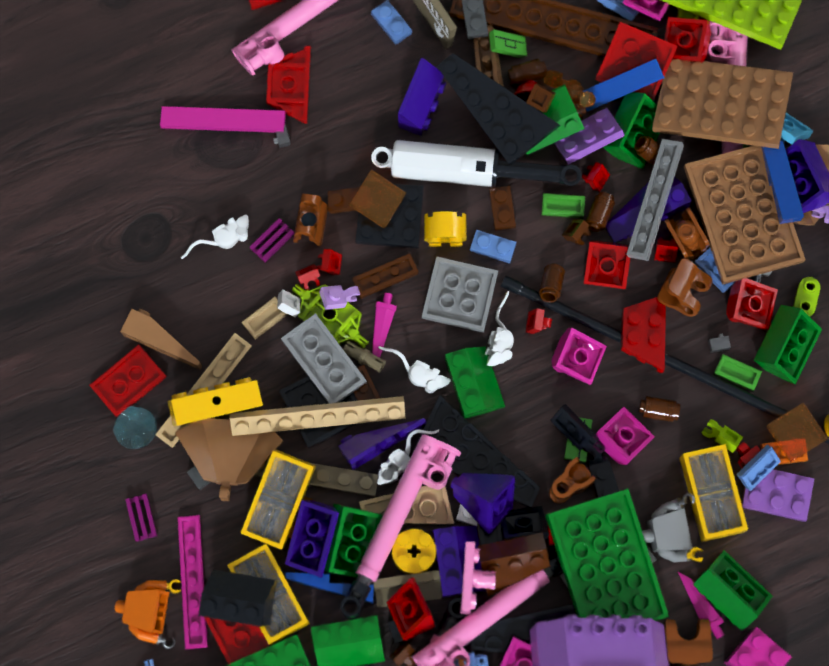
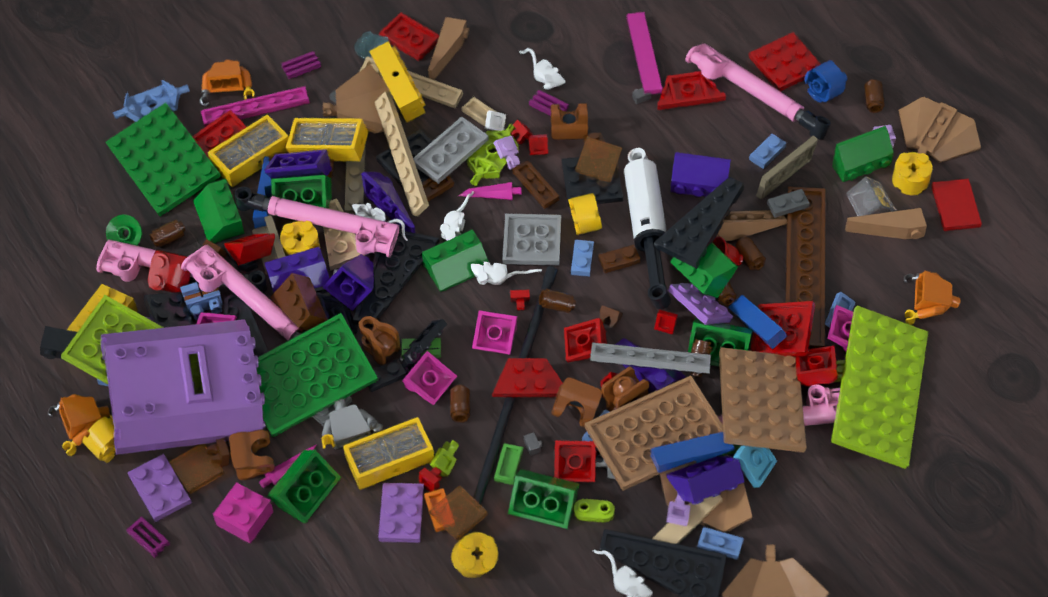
camera: 80 degrees right, 20 degrees down
(238, 598) = (238, 121): black slope -> none
(364, 356) = (461, 182): dark tan pin -> none
(473, 578) = (276, 266): bright pink plate -> none
(507, 44) = (771, 232): bright green tile -> none
(540, 98) = (716, 246): reddish brown tile -> none
(554, 79) = (742, 283): clear orange piece -> none
(563, 205) = (634, 303): bright green tile -> none
(600, 211) = (633, 329): reddish brown head -> none
(758, 467) = (418, 483): medium blue plate -> none

